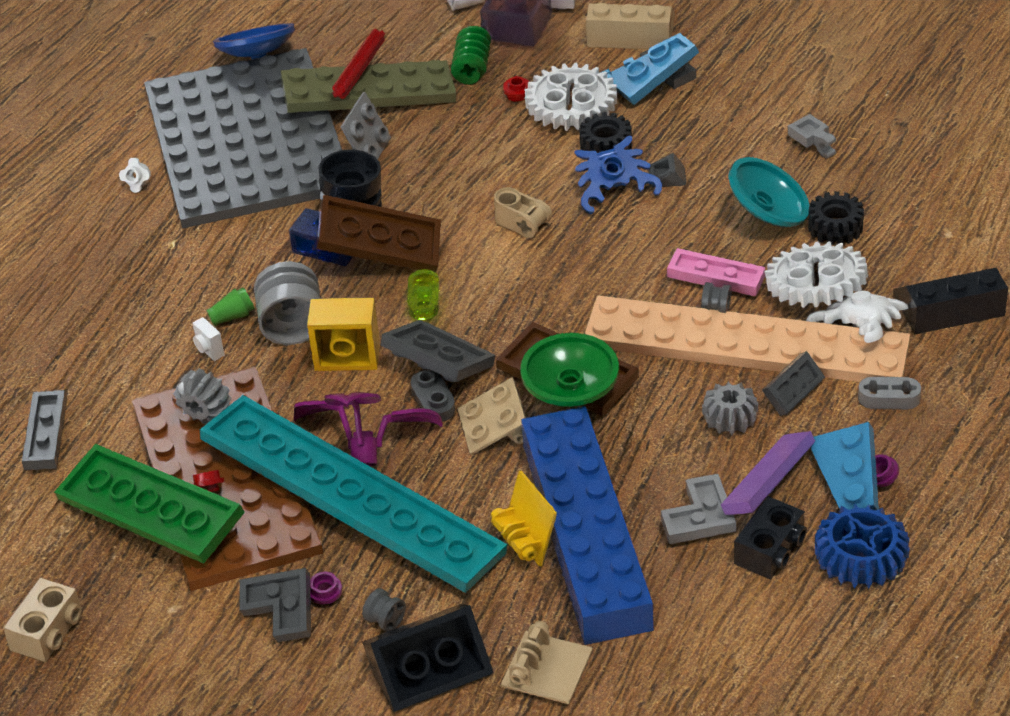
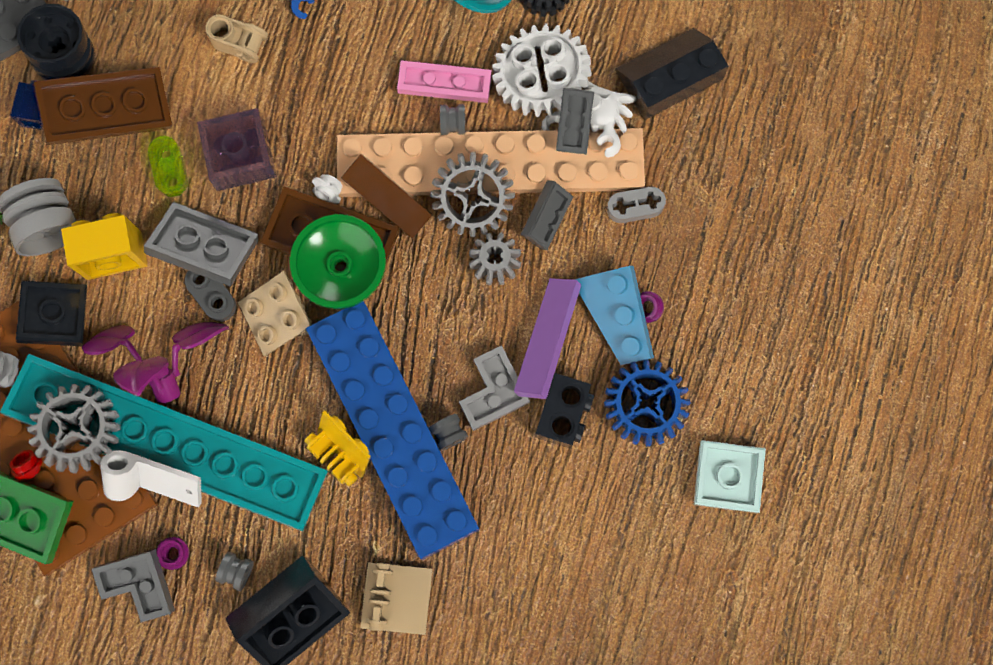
camera: 15 degrees left, 35 degrees up
(268, 447) = (67, 439): none -> light grey gear
(273, 380) = (51, 313): none -> black tile
(312, 499) = (127, 472): none -> white door
(495, 286) = (237, 149): none -> brick
(575, 325) = (327, 188): none -> white plate
(633, 342) = (386, 196): none -> reddish brown tile
(644, 534) = (448, 432): none -> dark grey wheel
(701, 336) = (459, 190): none -> light grey gear
(839, 307) = (575, 121): none -> dark grey plate
(939, 623) = (729, 476): none -> light aqua plate

